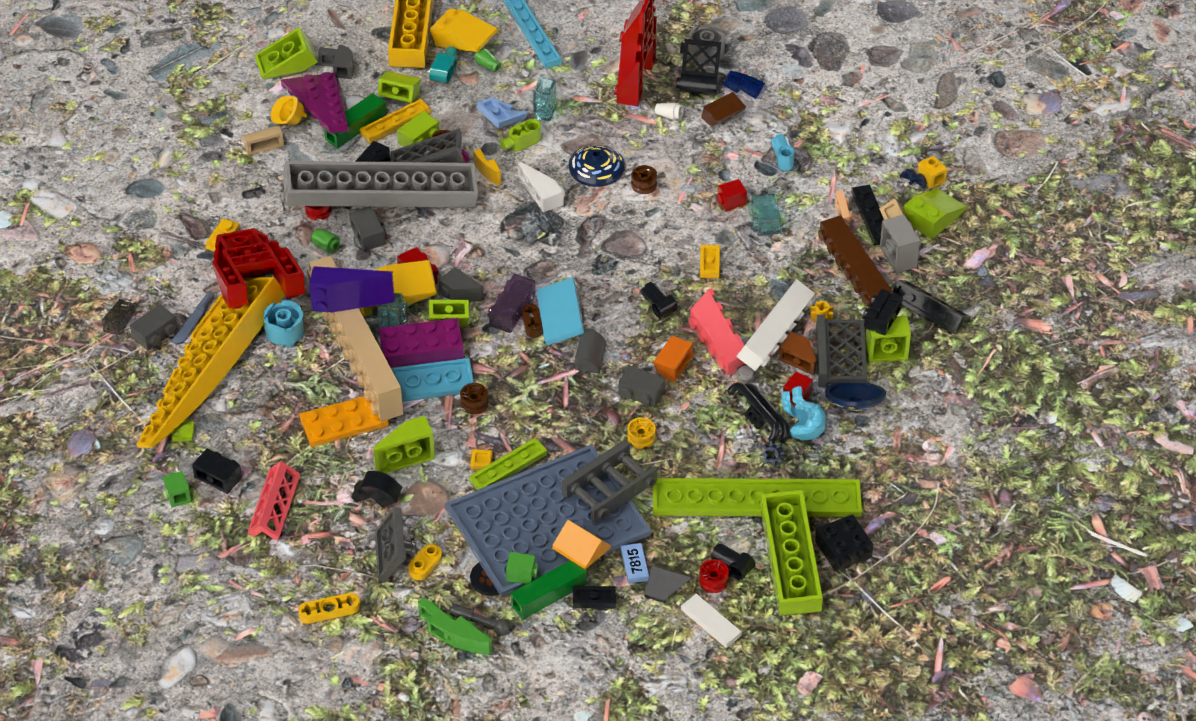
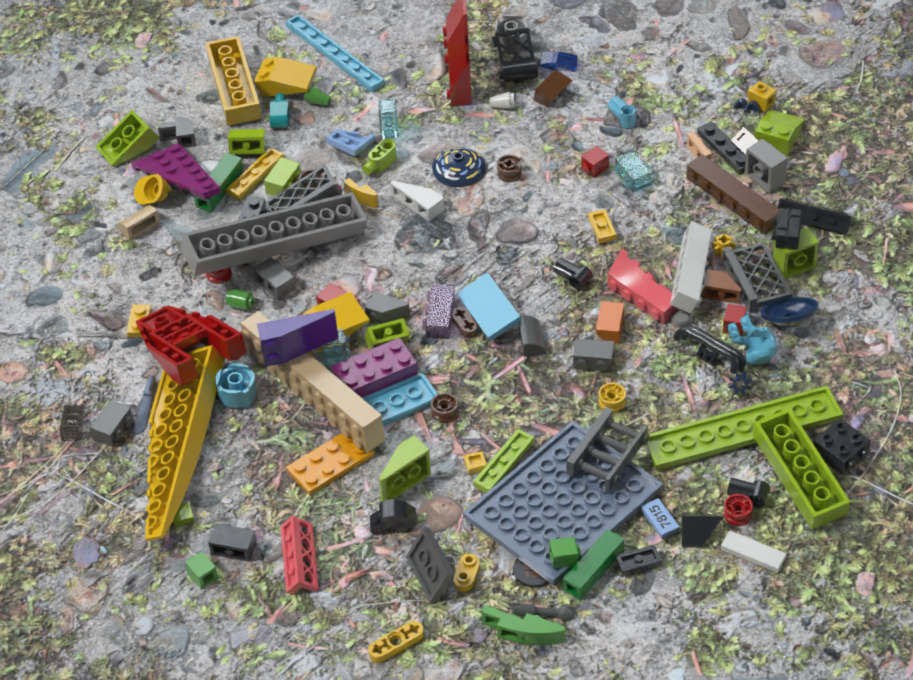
camera: 15 degrees left, 0 degrees up
(579, 545) = (607, 515): light orange slope -> none

